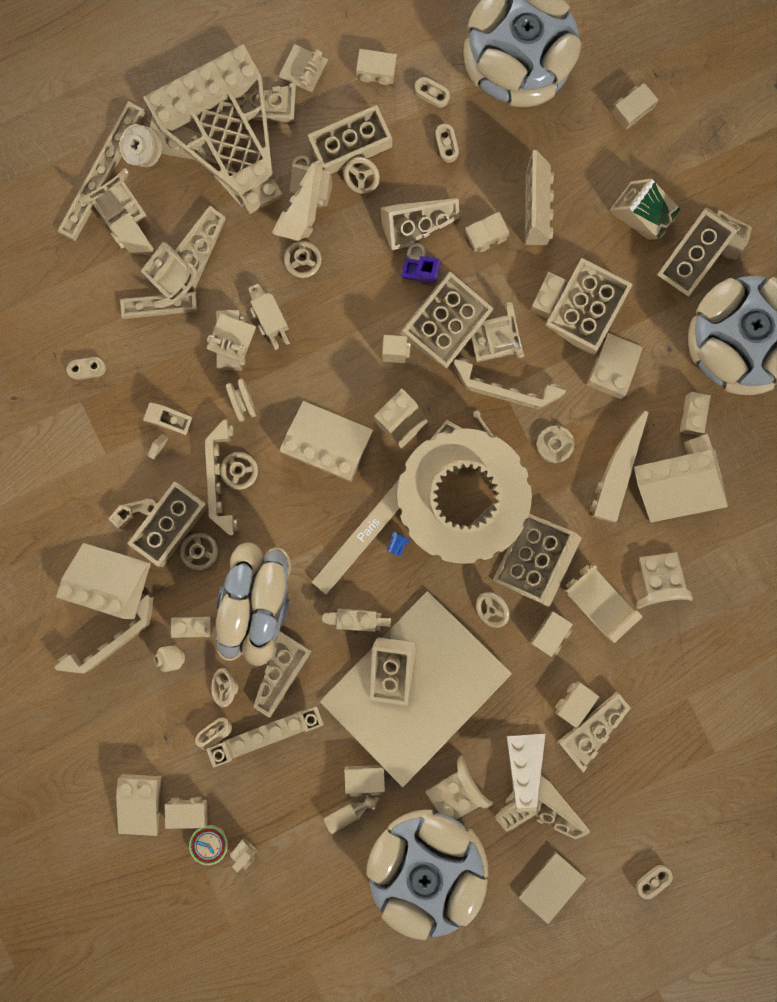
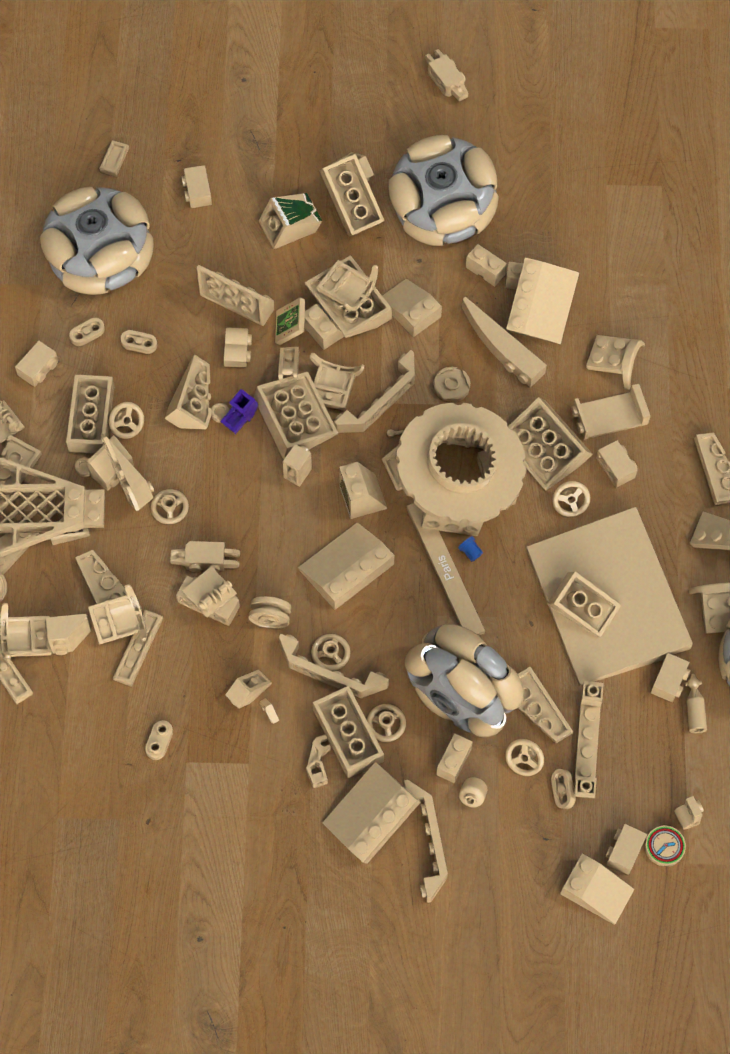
camera: 65 degrees left, 20 degrees down
(356, 620) = (521, 614): tan hinge -> none
(494, 287) = (288, 362): none -> tan hinge
(537, 265) = (290, 321): none -> tan tile
(576, 704) = (689, 473): tan brick -> none
(596, 299) = (348, 285): none -> tan piece
(625, 15) = (114, 158): none -> tan tile

